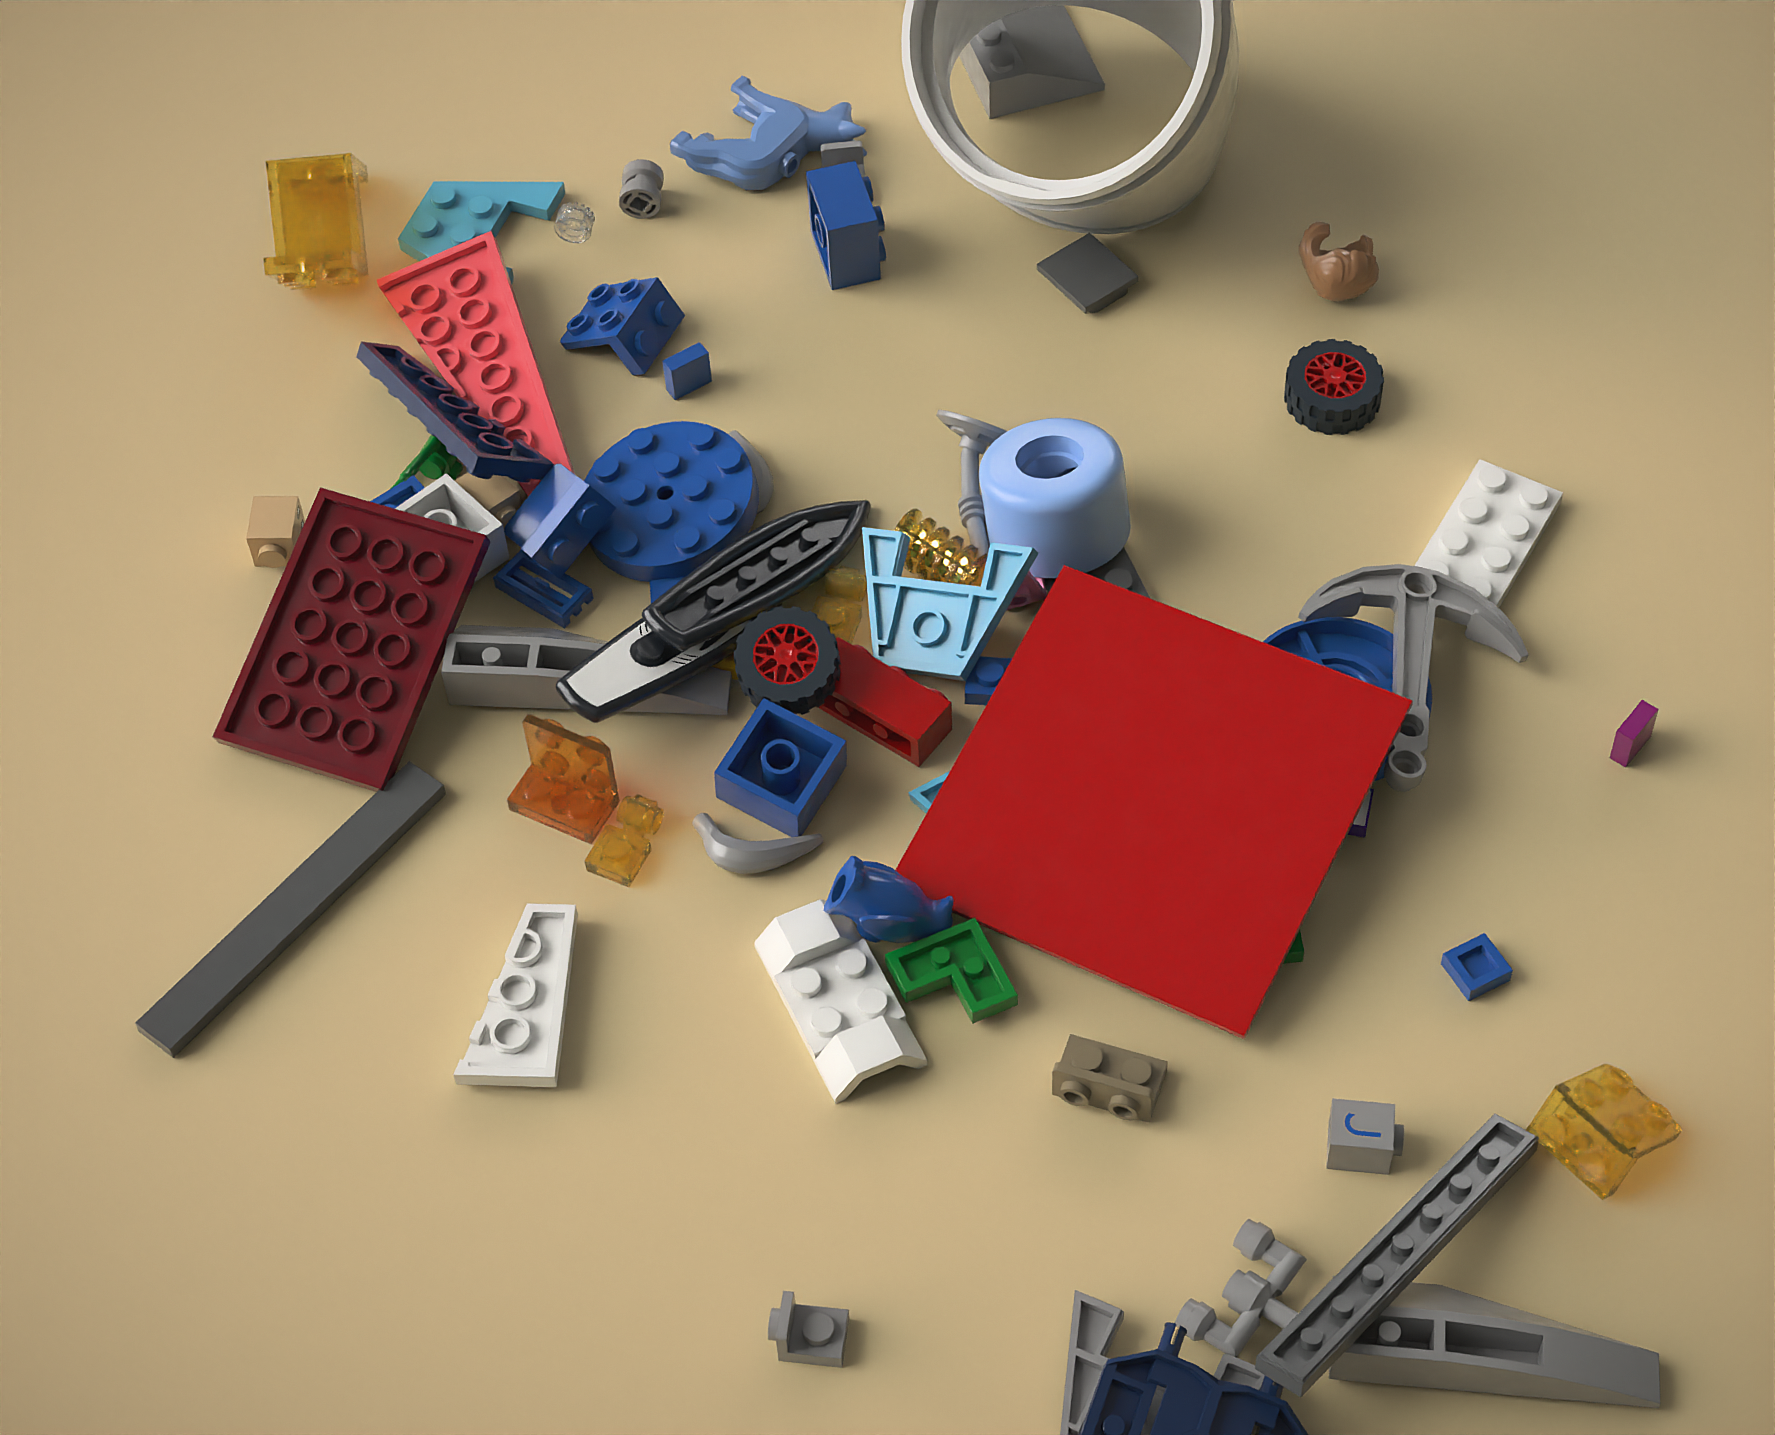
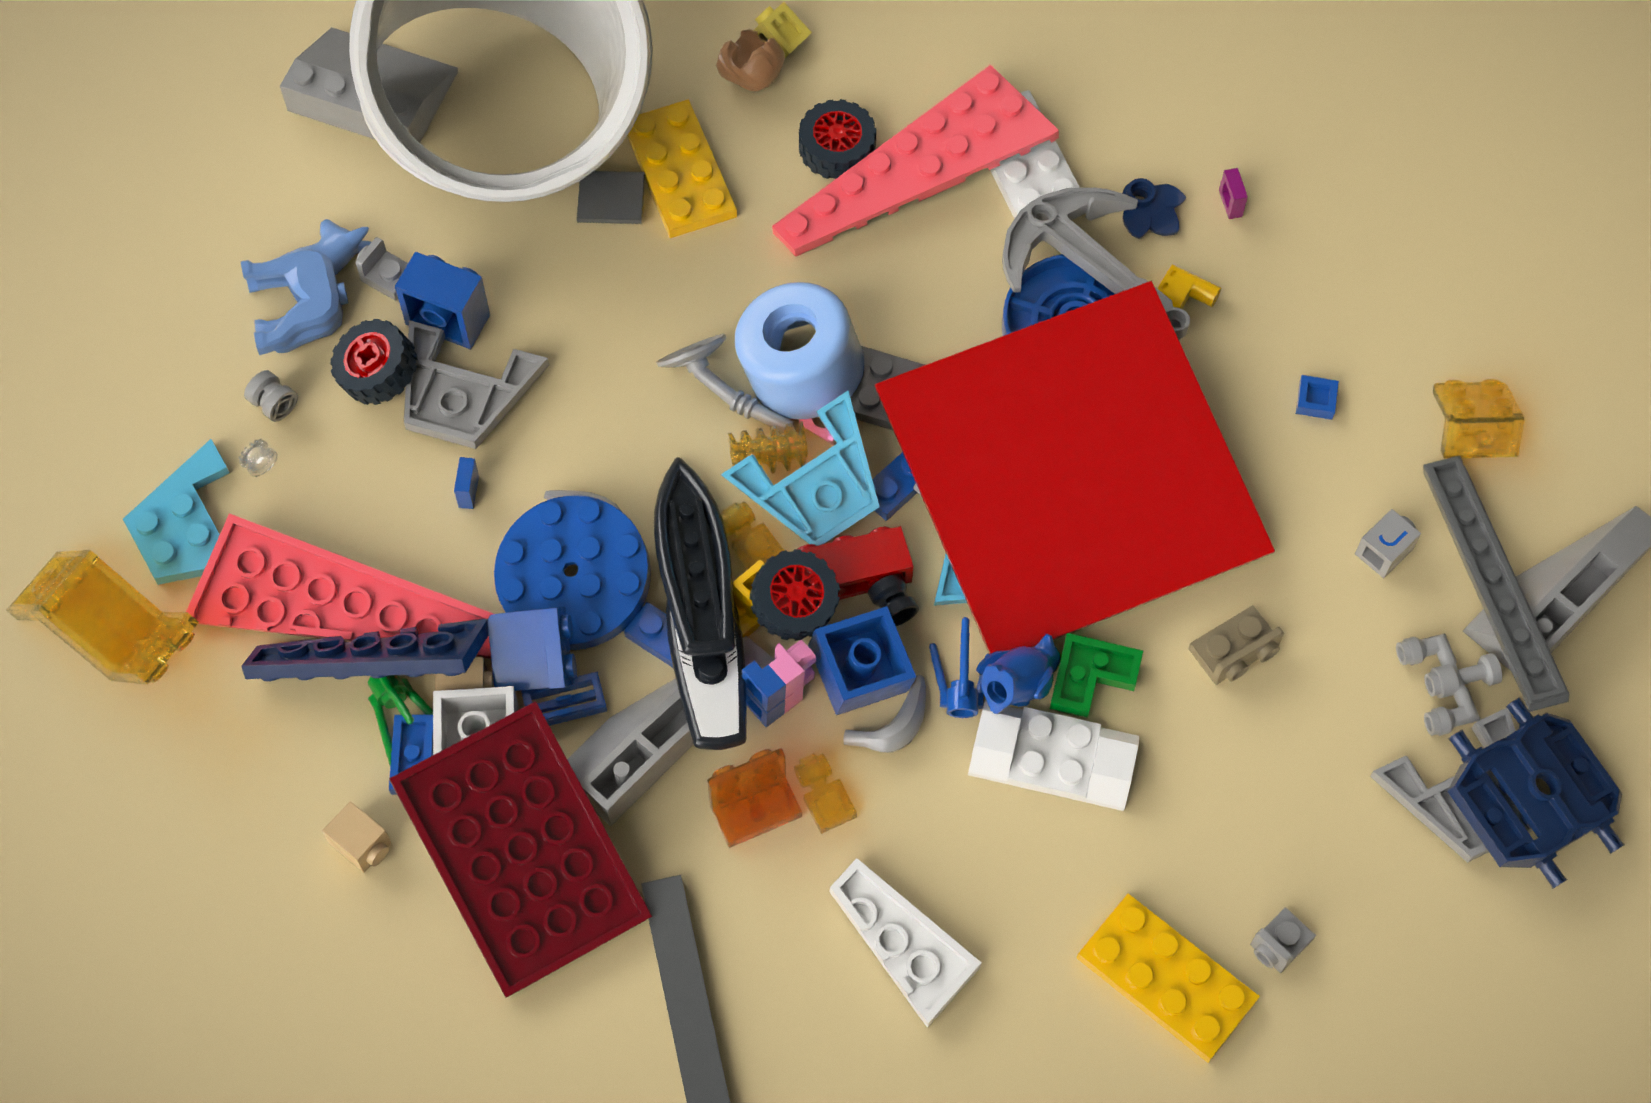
camera: 55 degrees left, 10 degrees up
(629, 317) = (379, 490): blue bracket -> none
(682, 1258) = (1168, 977): none -> yellow plate
(695, 718) = (780, 683): none -> hips
(739, 226) = (373, 361): none -> black wheel
(763, 312) = (459, 402): none -> light grey wing
(819, 879) = (962, 698): none -> blue plant
(877, 753) = (892, 593): none -> black wheel
(1174, 300) = (680, 169): none -> yellow plate
(1406, 265) = (782, 26): none -> light yellow bracket
(1436, 469) = (952, 140): none -> coral wing
(1475, 762) = (1181, 285): none -> yellow piece
(1539, 685) = (1155, 210): none -> dark blue plate

